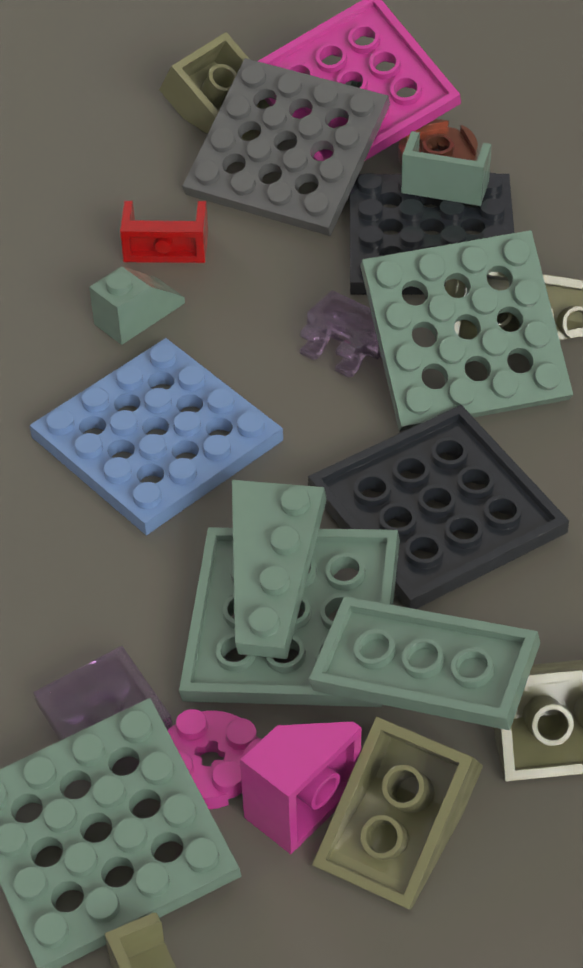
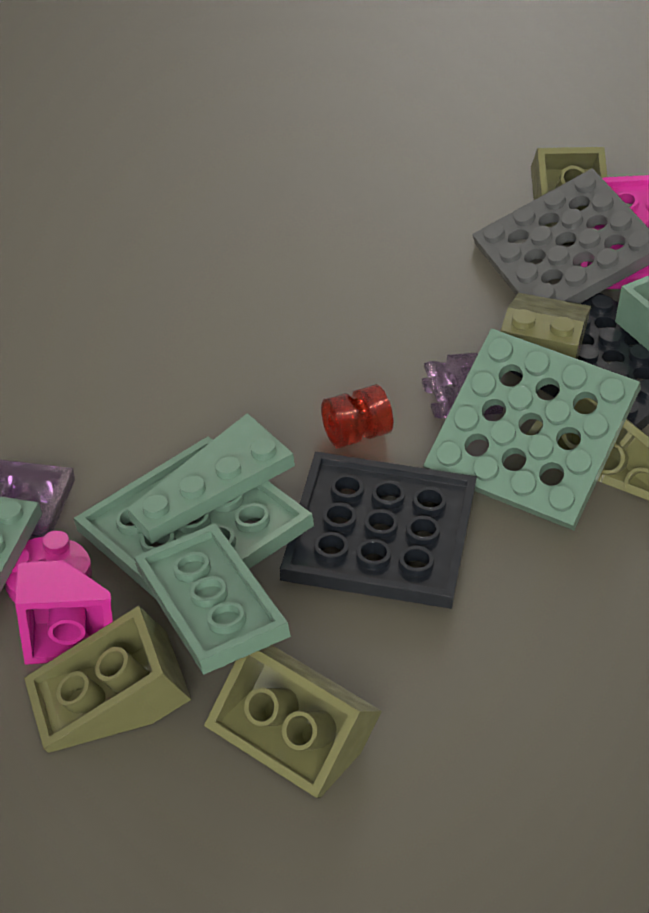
camera: 40 degrees right, 5 degrees down
(131, 302) = (347, 281): sand green slope -> none
(164, 240) = (416, 259): red panel -> none
(183, 480) = (246, 356): medium blue piece -> none
(303, 419) = (355, 416): none -> clear red wheel
(365, 229) = (547, 323): none -> olive slope

